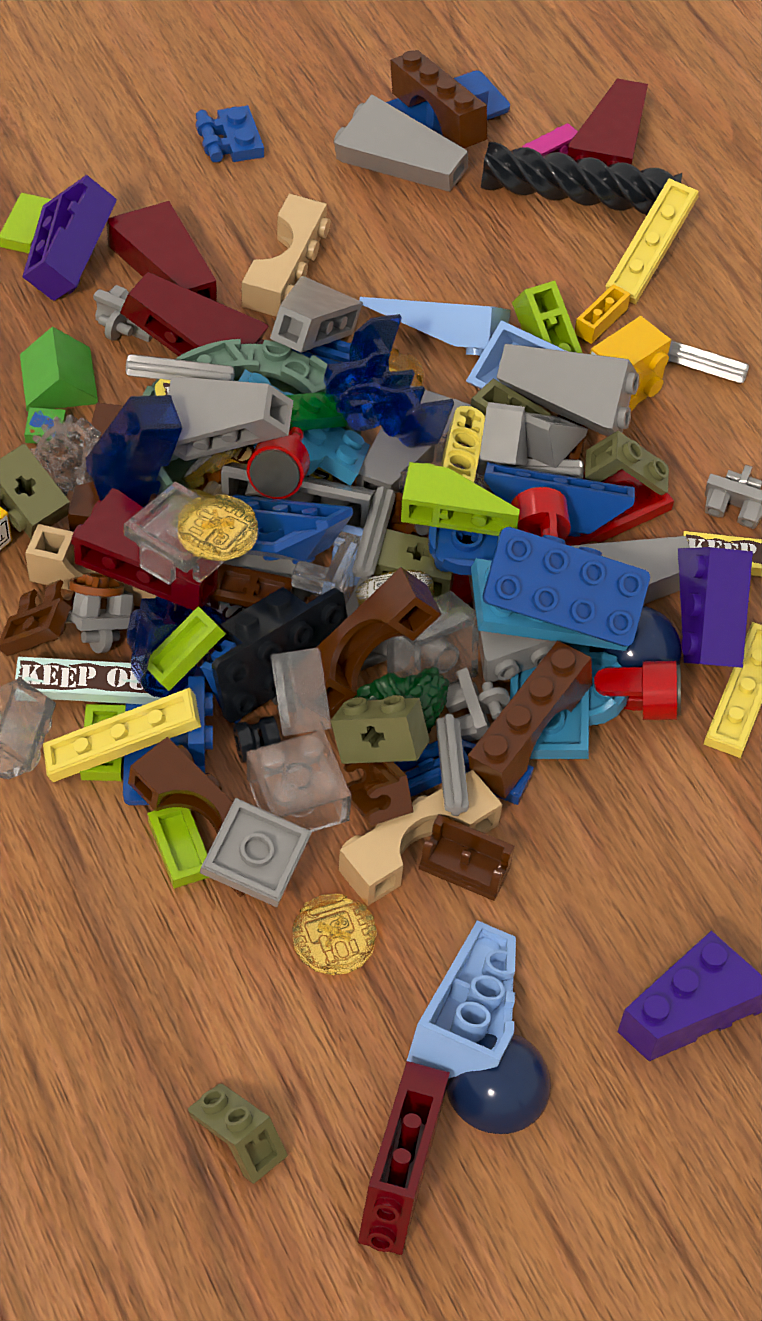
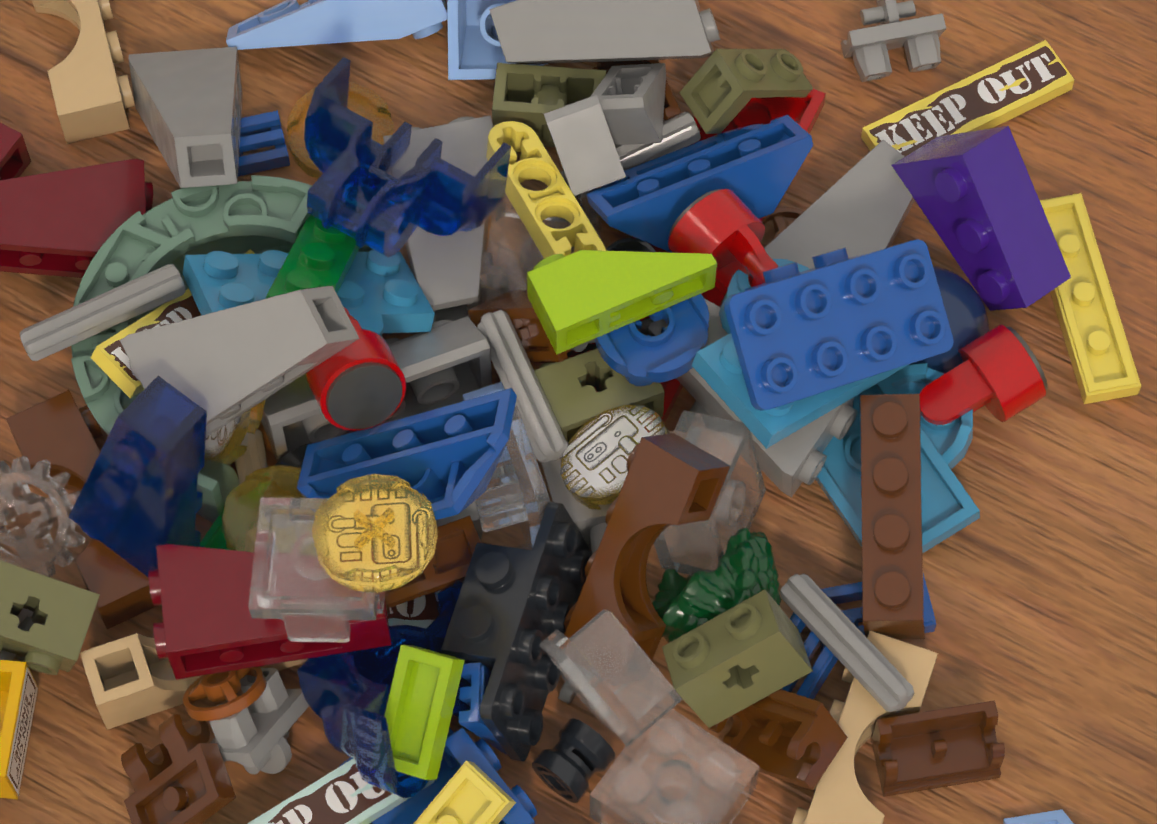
camera: 30 degrees left, 10 degrees up
(466, 694) = (815, 558): light grey hips -> none

